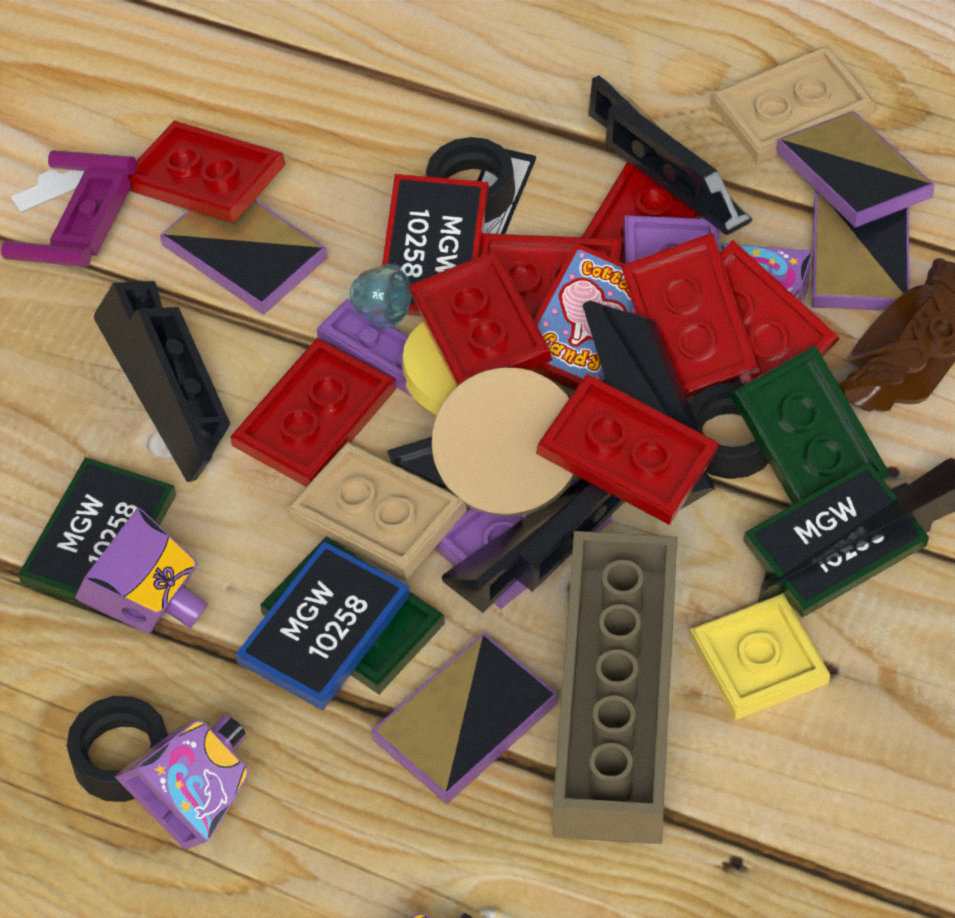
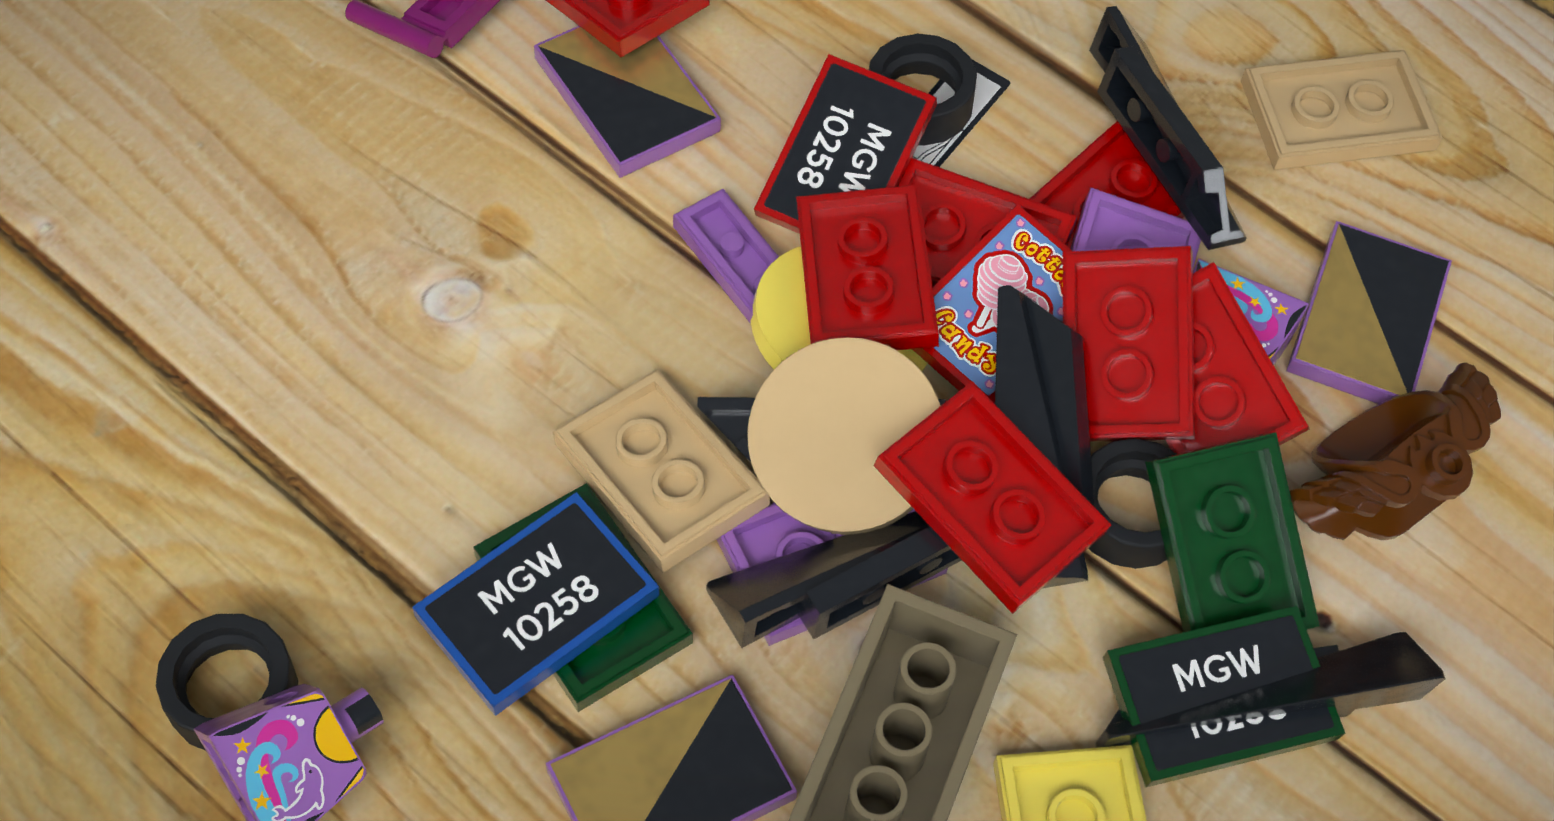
camera: 10 degrees right, 5 degrees up
(87, 522) = (316, 393): black tile -> none
(142, 577) = (339, 468): medium lavender torso -> none
(164, 372) = (475, 215): black wedge -> none
(313, 412) = (632, 318): red tile -> none
(381, 295) = (761, 199): clear light blue cone -> none
(855, 168) = (1394, 214): tile -> none

